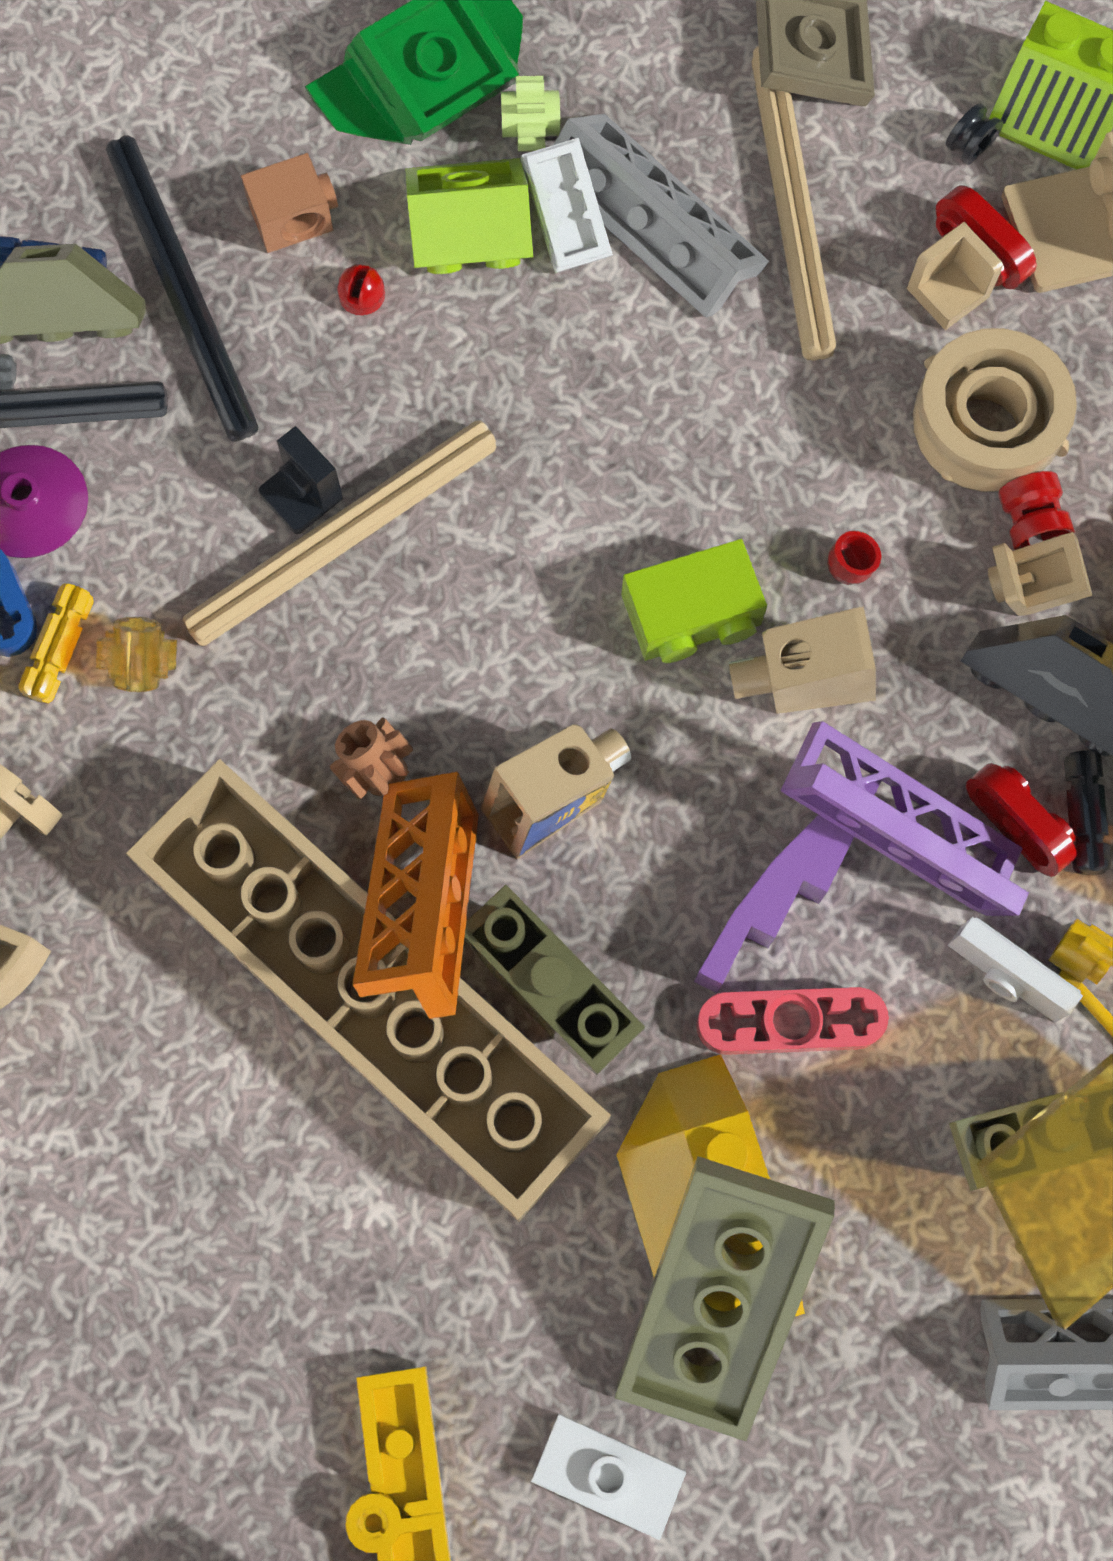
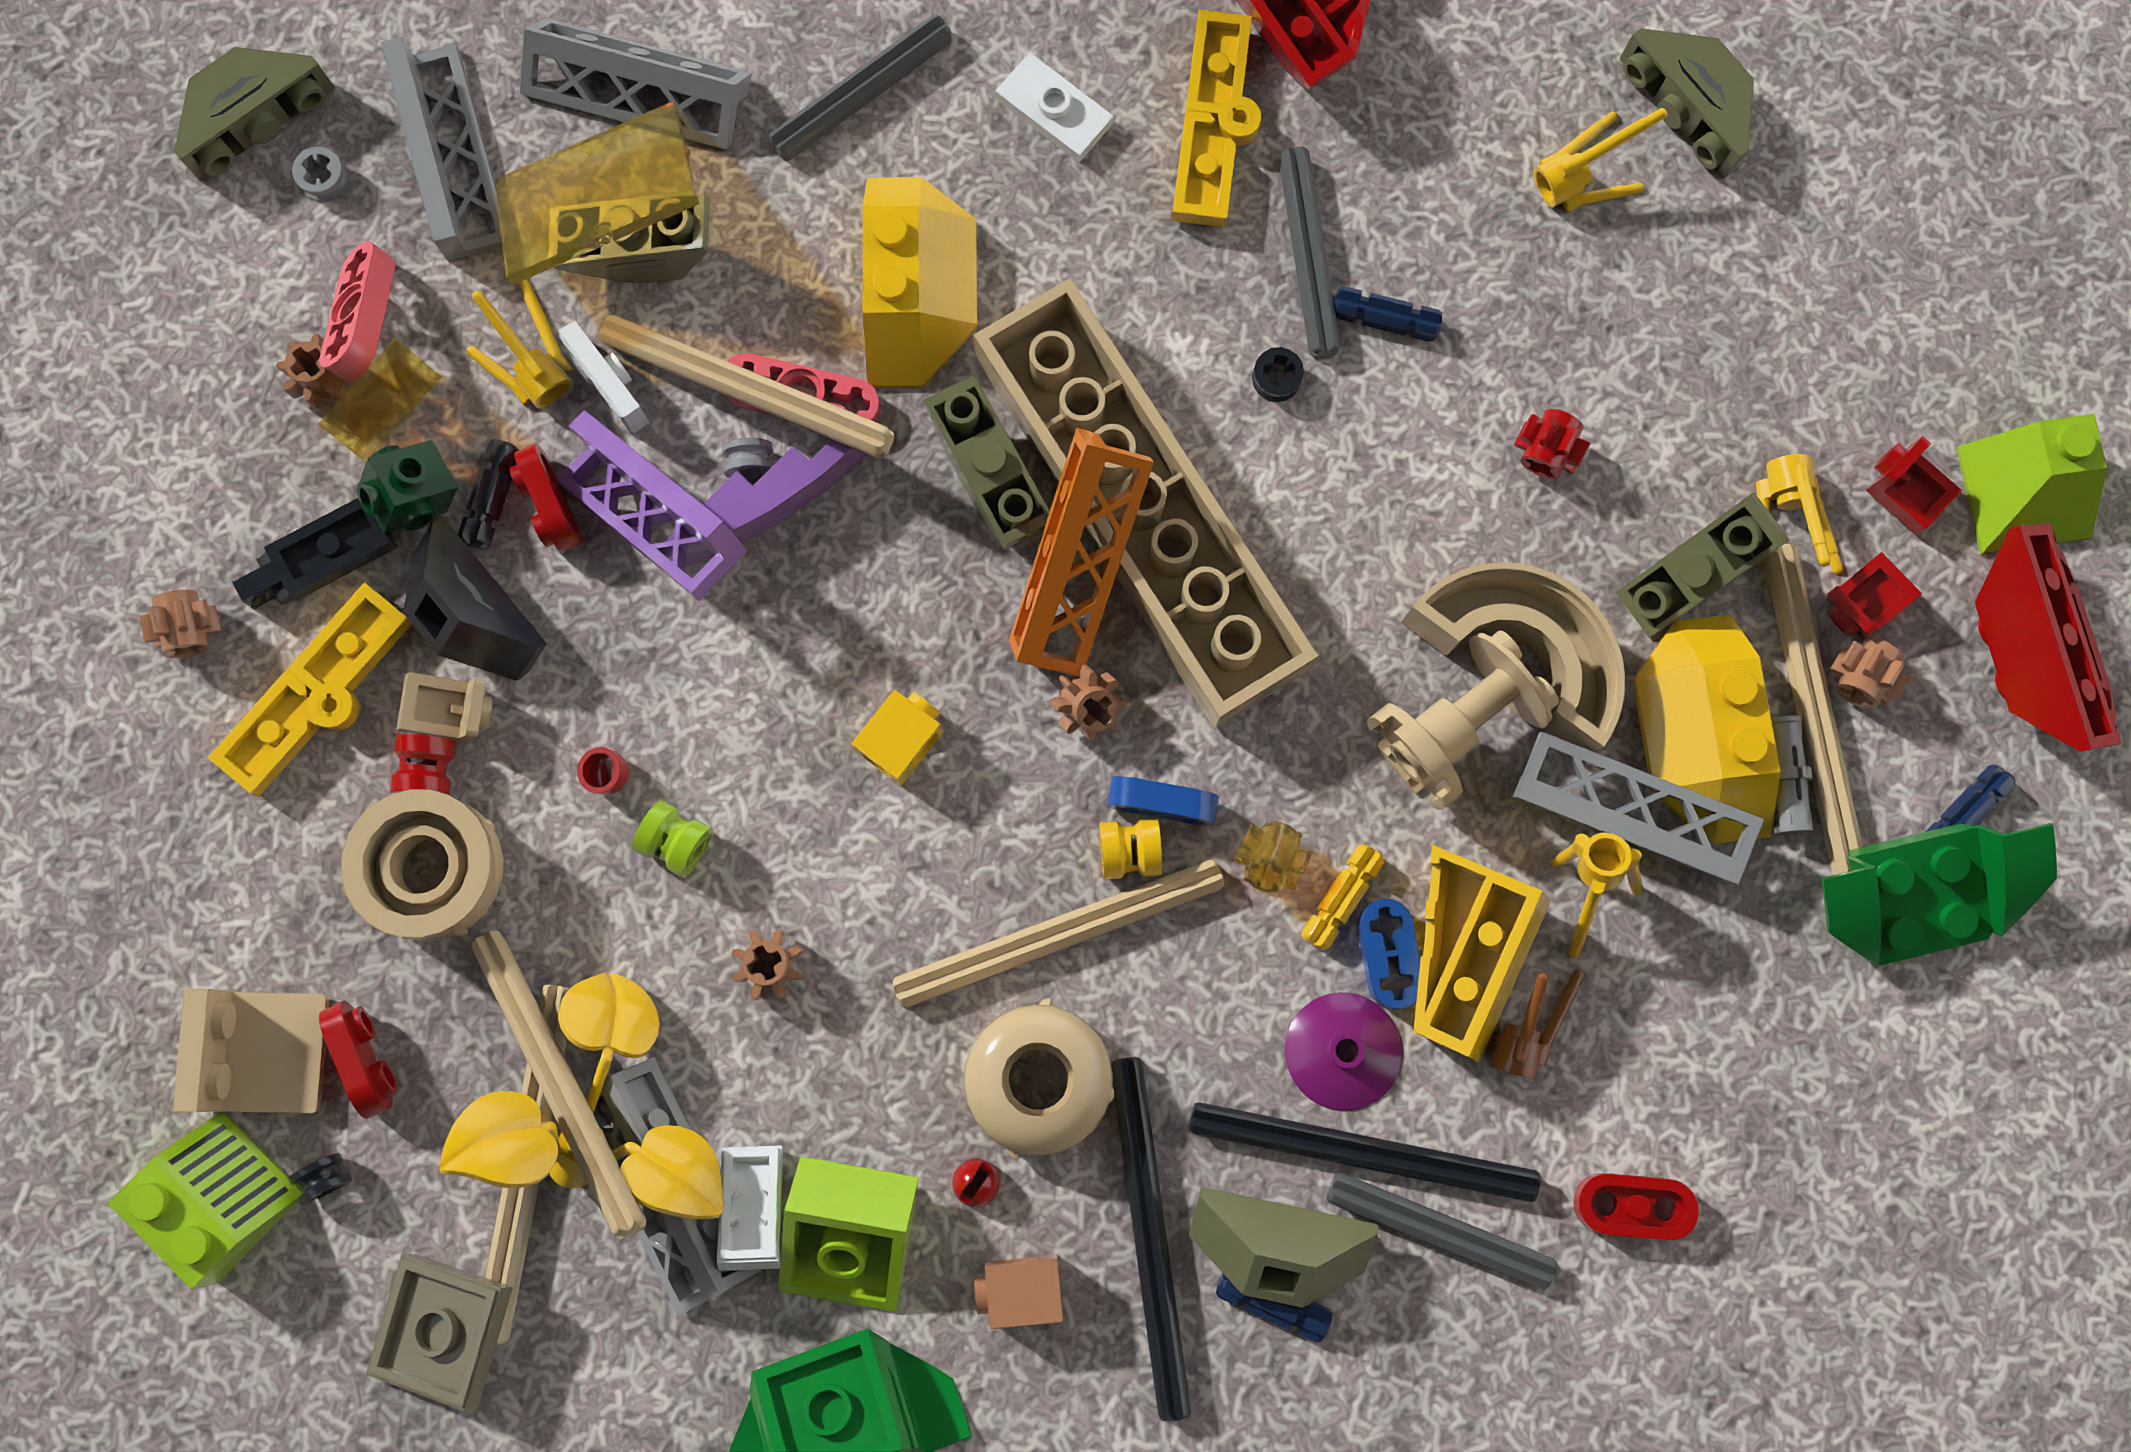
camera: 165 degrees left, 5 degrees up
(137, 1318) = (1387, 313): none -> dark blue axle
(235, 1189) = (1264, 364): none -> black bush
(249, 1375) = (1309, 252): none -> dark grey axle
(266, 682) = (1163, 801): none -> blue beam
(303, 485) = (1088, 980): black bracket -> none
(303, 622) = (1117, 849): none -> yellow wheel
(337, 424) = (988, 1080): none -> tan piece
(530, 113) = (753, 1325): yellowish green gear -> none
(551, 785) = (957, 623): tan torso -> none
(561, 671) = (899, 735): none -> yellow brick
(622, 434) = (783, 970): none -> nougat gear
(694, 602) = (760, 767): lime brick -> none
(698, 1262) = (926, 180): olive plate -> none
(760, 511) = (672, 838): none -> lime wheel
(784, 248) = (559, 1086): none -> tan axle
(807, 150) = (508, 1146): none -> yellow plant
(822, 924) = (748, 457): none -> light grey bush
(834, 661) = (657, 658): tan torso -> none
(849, 1432) = (860, 87): none -> dark grey axle
(851, 994) = (747, 387): none -> tan axle
(954, 275) = (403, 1023): tan panel -> none

